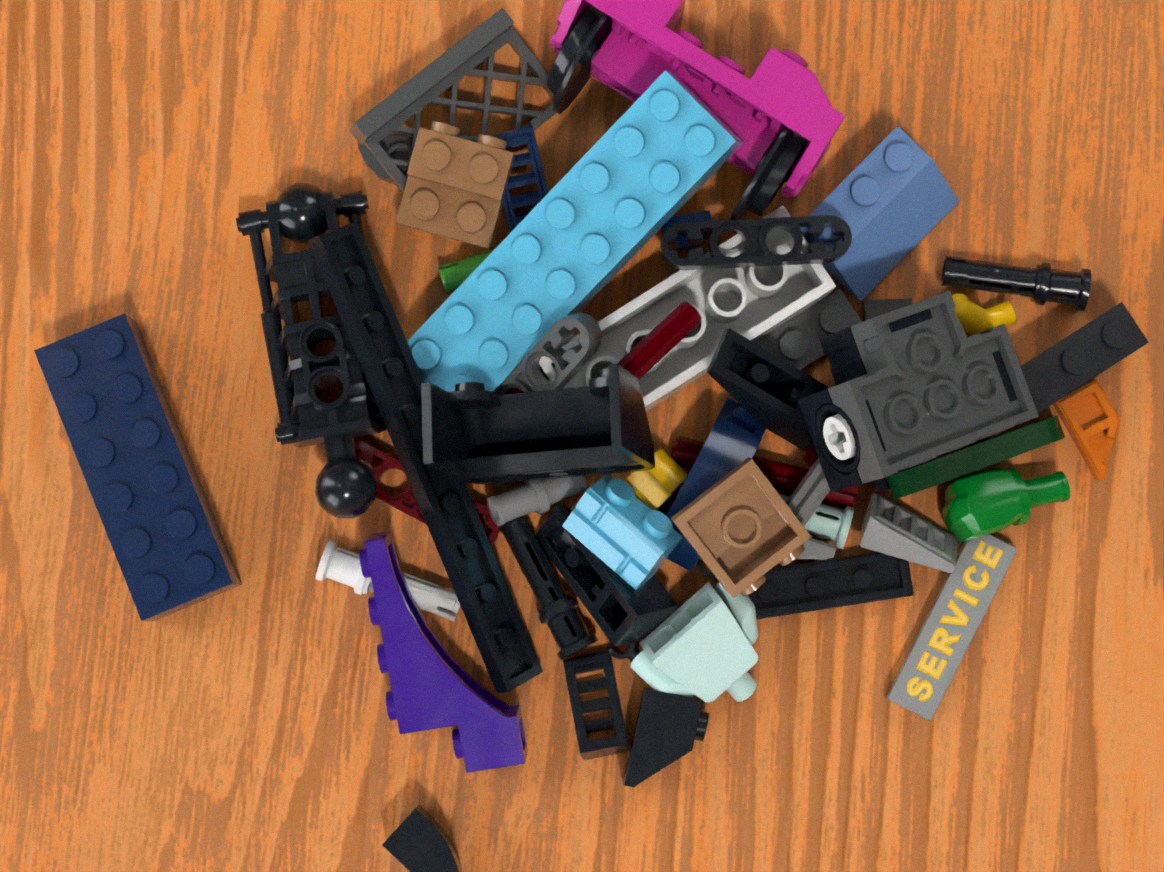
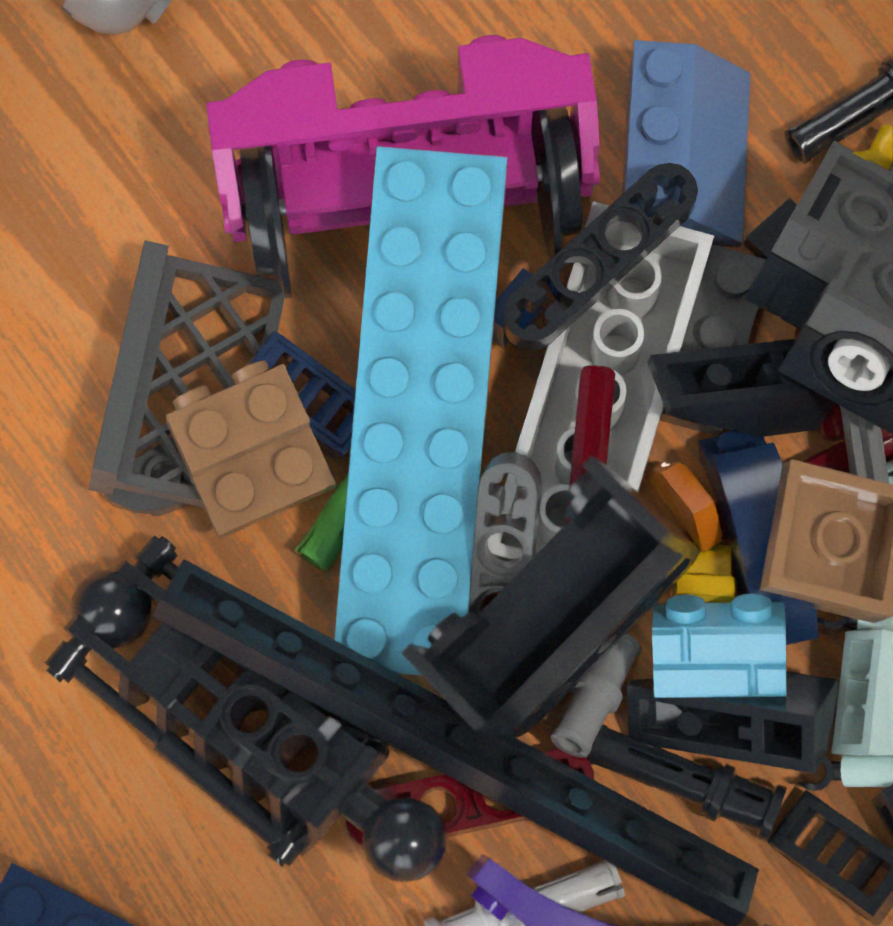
camera: 40 degrees left, 10 degrees down
(683, 429) = (687, 502): none -> orange tile

